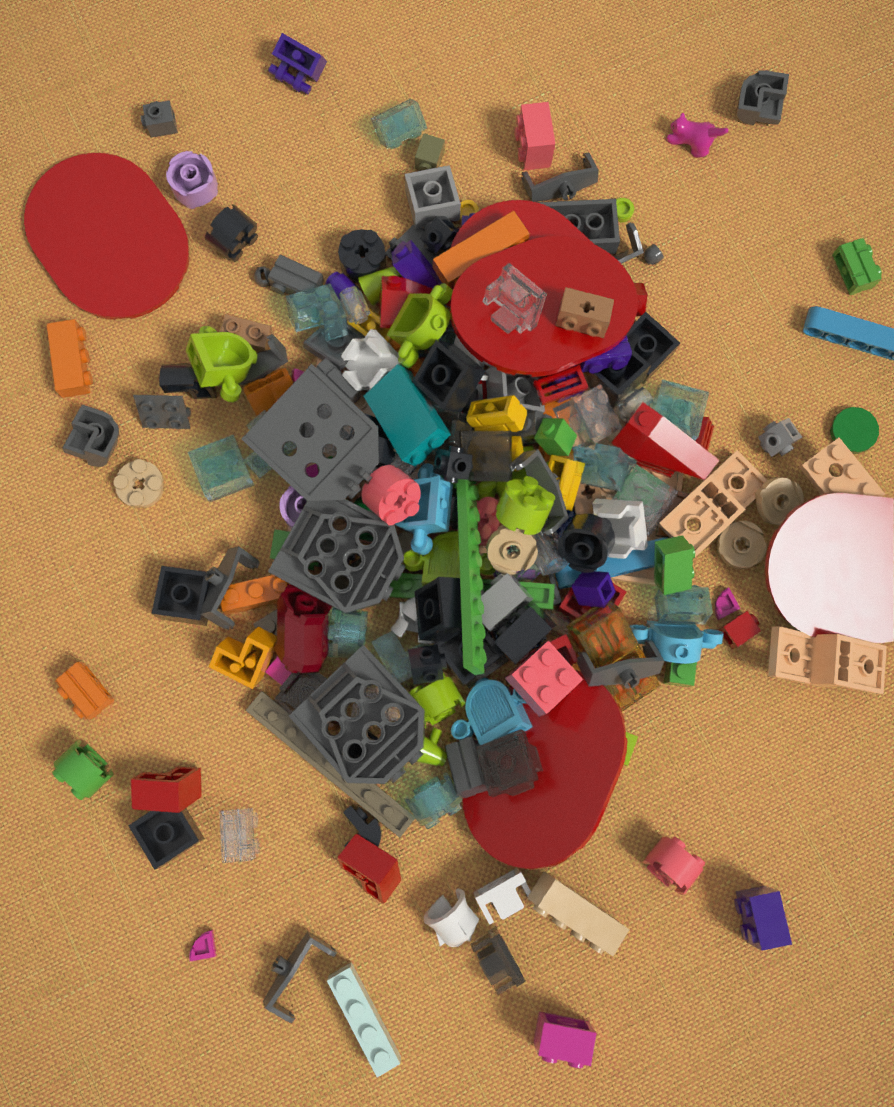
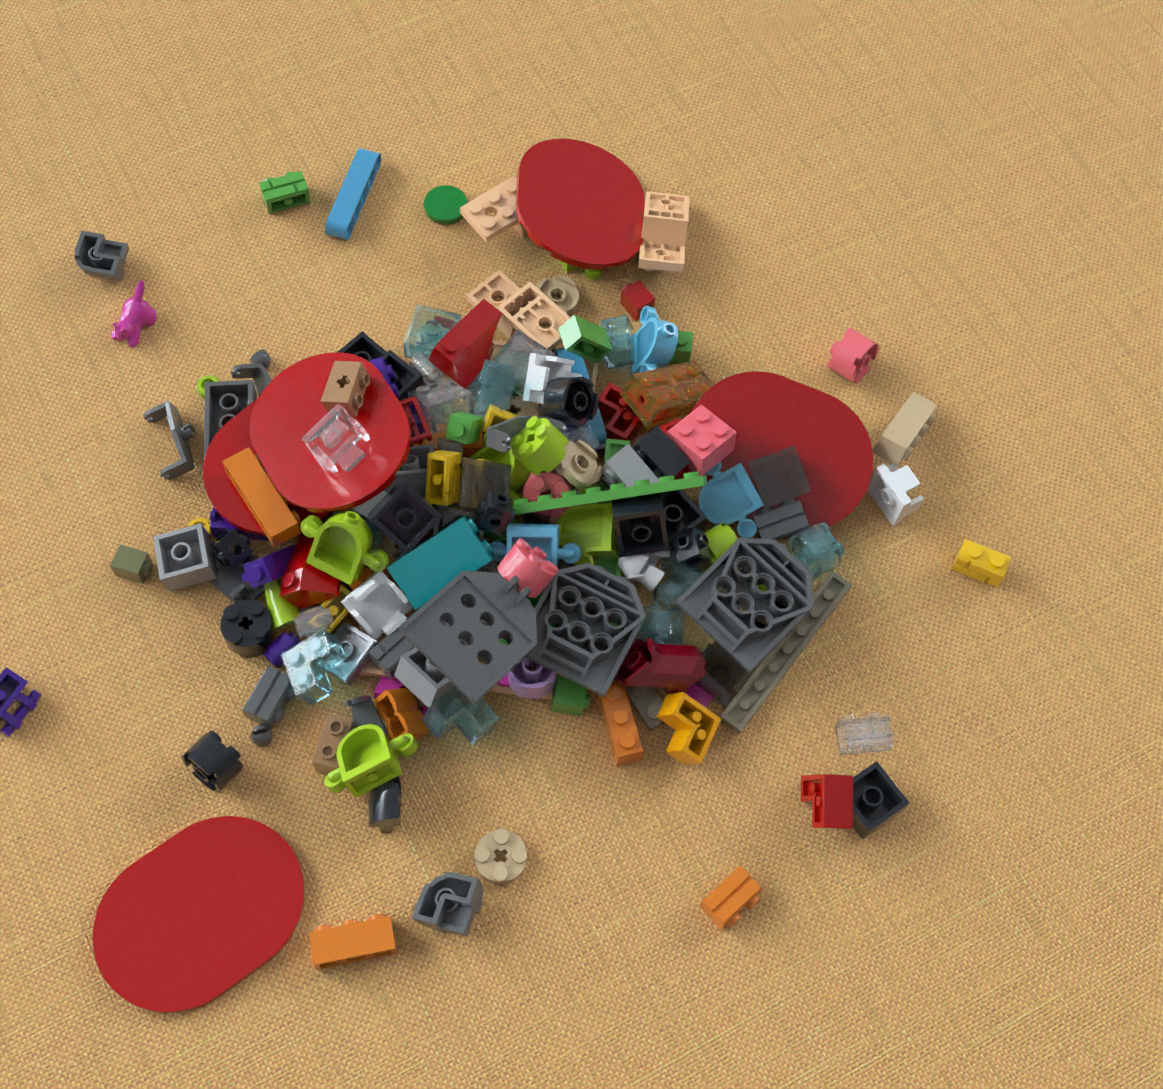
camera: 90 degrees left, 15 degrees down
(82, 770) = (816, 888): bright green brick -> none
(159, 118) = (56, 856): dark grey brick -> none
(162, 411) = (422, 829): dark grey hinge -> none
(181, 595) = (626, 795): black brick -> none
(192, 179) = (147, 824): lavender brick -> none
(203, 947) = (974, 767): dark pink tile -> none
(220, 581) = (615, 750): dark grey piece -> none
(221, 468) = (486, 763): clear light blue brick -> none
(286, 971) = (986, 680): dark grey piece -> none
(364, 1019) = (1019, 613): light aqua brick -> none
(371, 831) = (854, 613): black brick -> none
(372, 866) = (883, 604): red panel -> none
(399, 123) = (93, 592): clear light blue brick -> none
(422, 983) = (981, 563): none -> yellow brick
(451, 924) = (926, 532): white helmet -> none
(497, 961) = (947, 495): clear smoke panel -> none
(535, 136) = (124, 457): coral brick -> none
(564, 1039) = (1013, 443): dark pink brick -> none
(593, 589) = (612, 403): dark purple brick -> none
(622, 672) = (690, 375): dark grey piece -> none
(725, 604) = (610, 310): dark pink tile -> none
(762, 918) = (890, 289): dark purple brick -> none
(768, 495) = (516, 263): tan plate -> none
(779, 437) = (455, 259): light grey brick -> none

